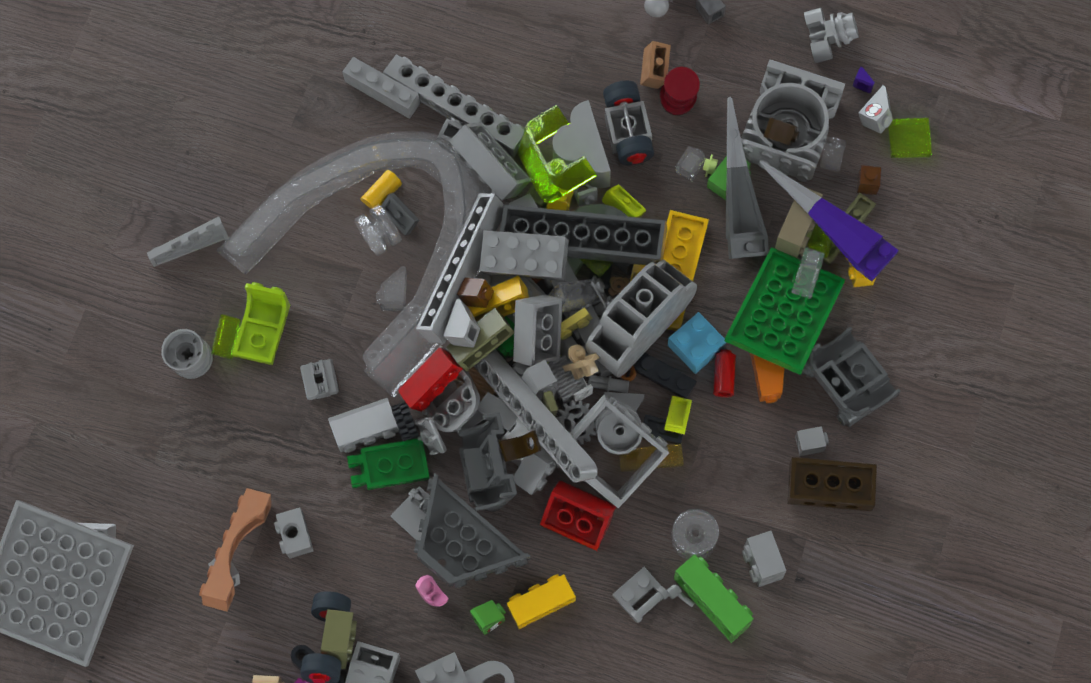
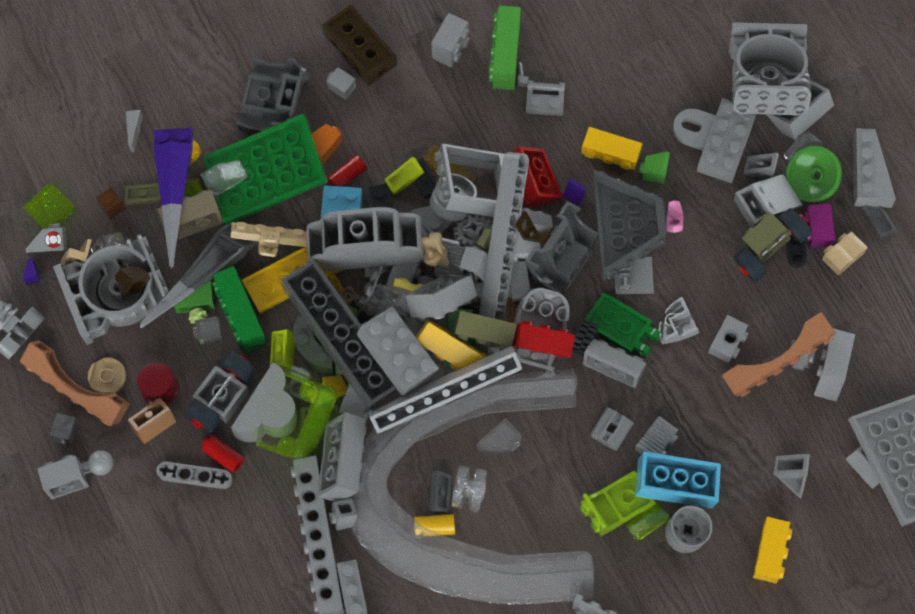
camera: 135 degrees left, 0 degrees up
(111, 403) = (772, 550): none -> yellow brick
(151, 479) = (792, 471): none -> light grey slope
(186, 588) = (834, 365): none -> light grey wedge
(228, 380) = (678, 480): none -> medium azure brick
(276, 401) = (657, 437): none -> light grey brick
(347, 509) = (677, 323): none -> light grey brick
(430, 435) = (577, 311): light grey piece -> none
(462, 326) = (489, 340): light grey slope -> none
(475, 292) = (455, 358): reddish brown brick -> none
(533, 536) = (574, 192): none -> dark purple slope
(576, 94) = (222, 453): none -> red brick
(589, 67) = (195, 471): none -> light grey beam
(682, 192) = (238, 310): none -> green brick
(701, 523) = (475, 94): clear wheel -> none
(724, 264) = (268, 236): none -> tan plate
(725, 69) = (107, 376): none -> tan tile
(775, 31) = (43, 362): none -> nougat arch
(842, 113) = (74, 255): none -> tan panel
(924, 251) = (133, 122): none -> light grey slope

